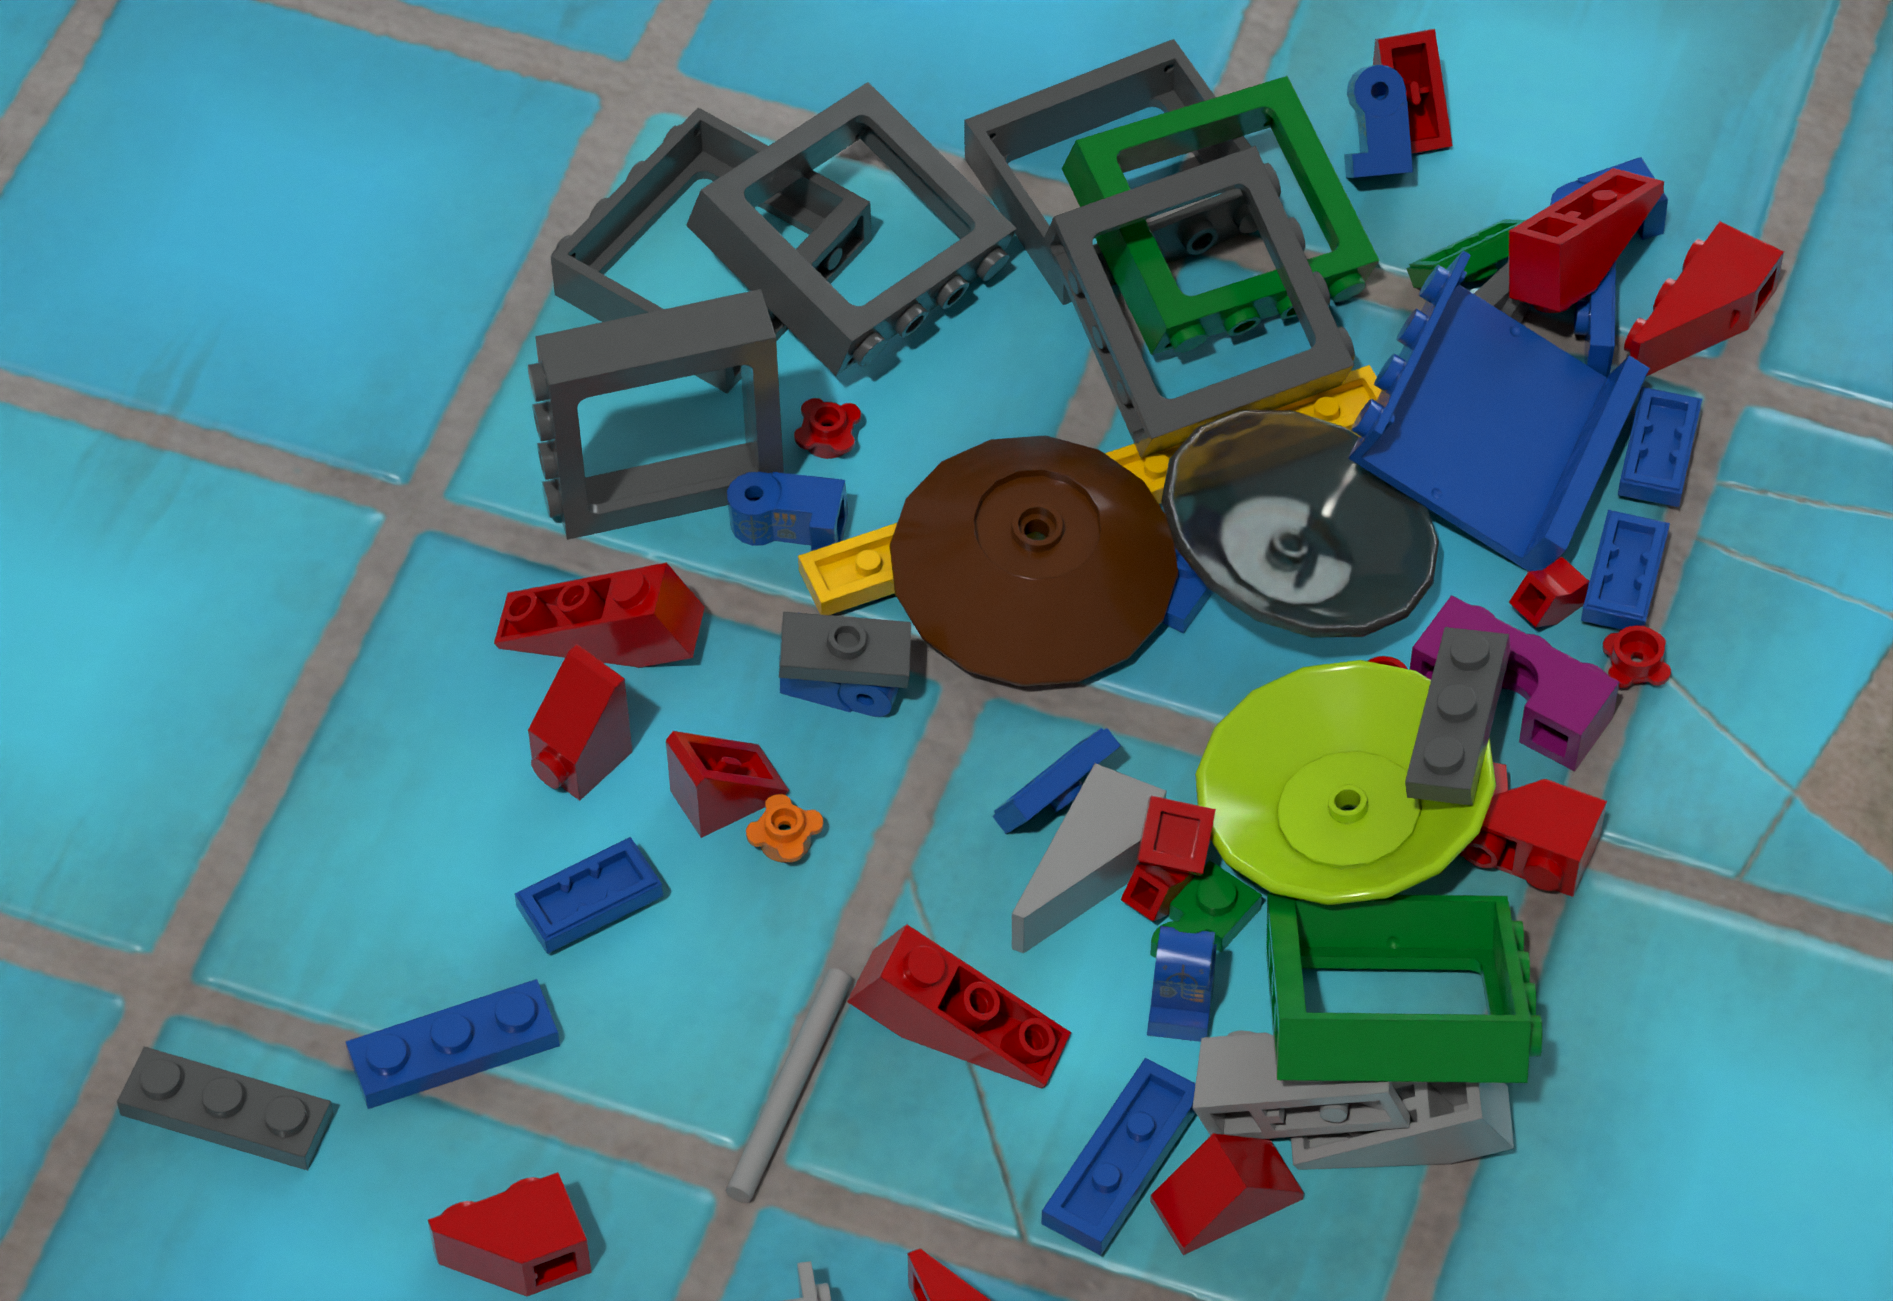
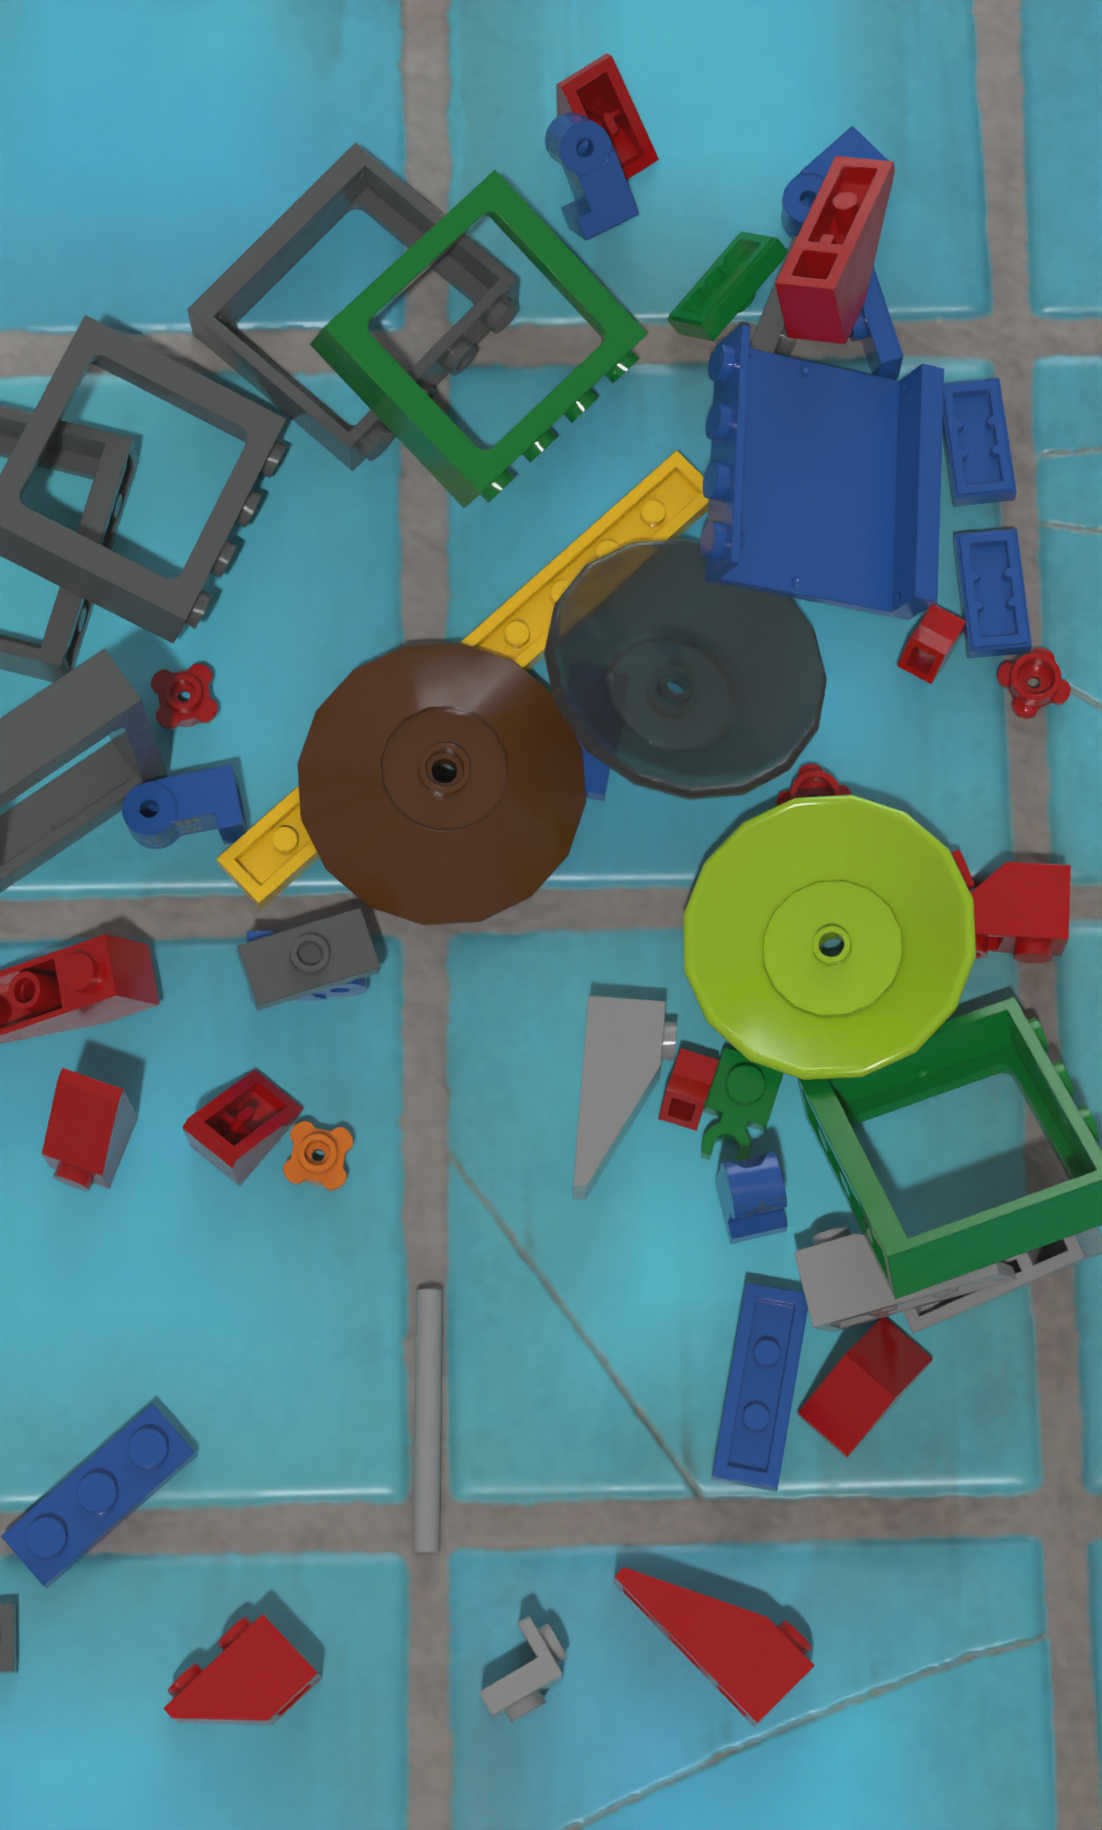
camera: 20 degrees left, 20 degrees up
(588, 895) = (164, 1295): blue plate -> none
(956, 1009) = (554, 1293): red slope -> none
(1057, 783) = (553, 1016): blue plate -> none
(1163, 422) = (368, 454): dark grey piece -> none
(1175, 835) = (695, 1052): red plate -> none
(1458, 716) = (914, 839): dark grey plate -> none
(1565, 698) = (988, 754): magenta arch -> none
(1713, 299) = (972, 257): red slope -> none

